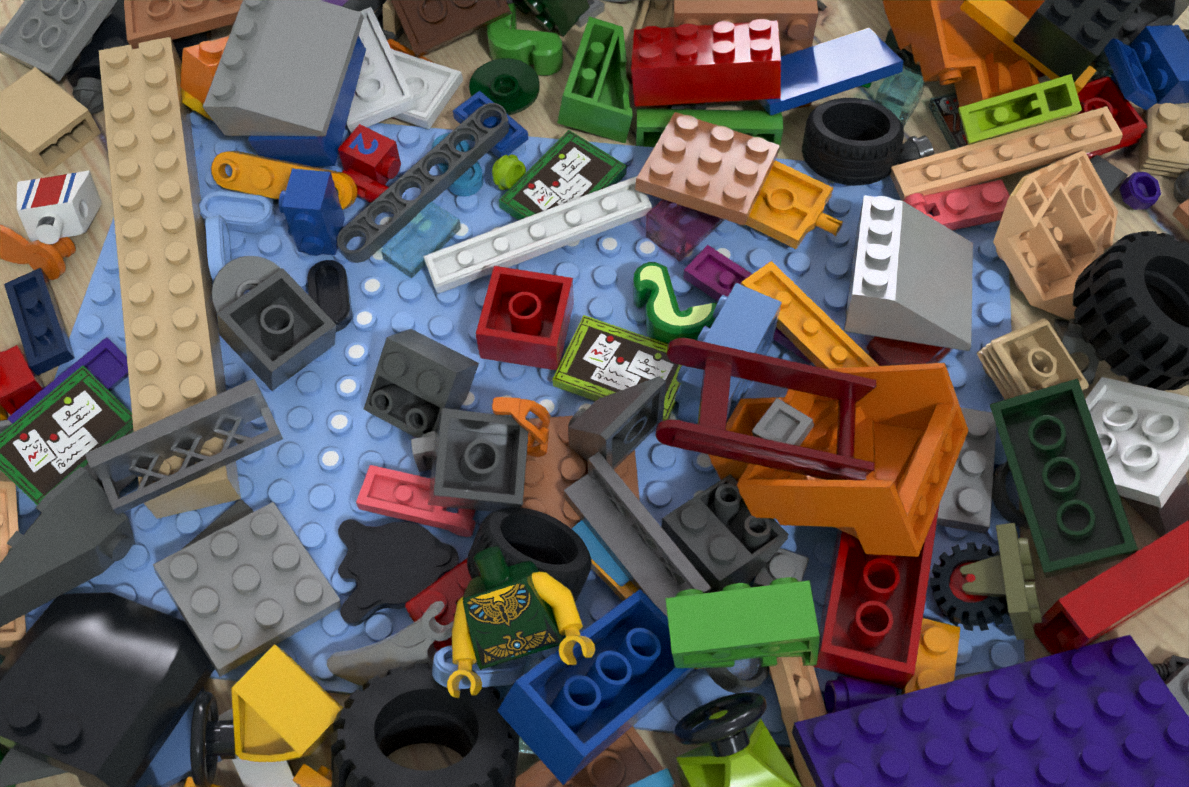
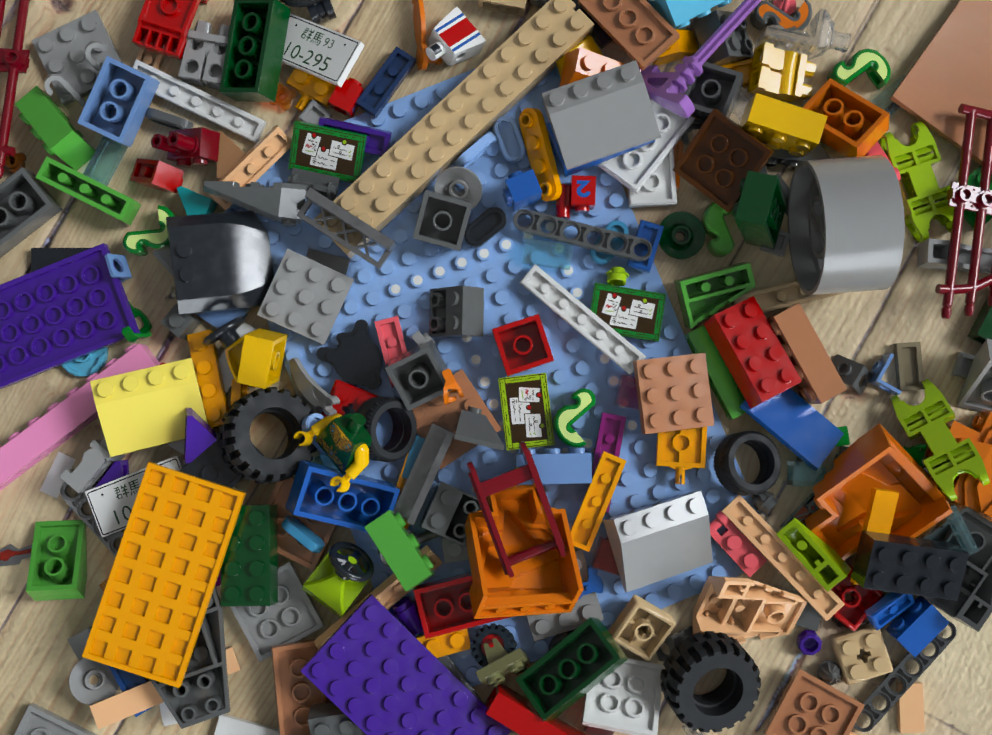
camera: 55 degrees right, 25 degrees up
(783, 424) = (520, 518): light grey plate -> none

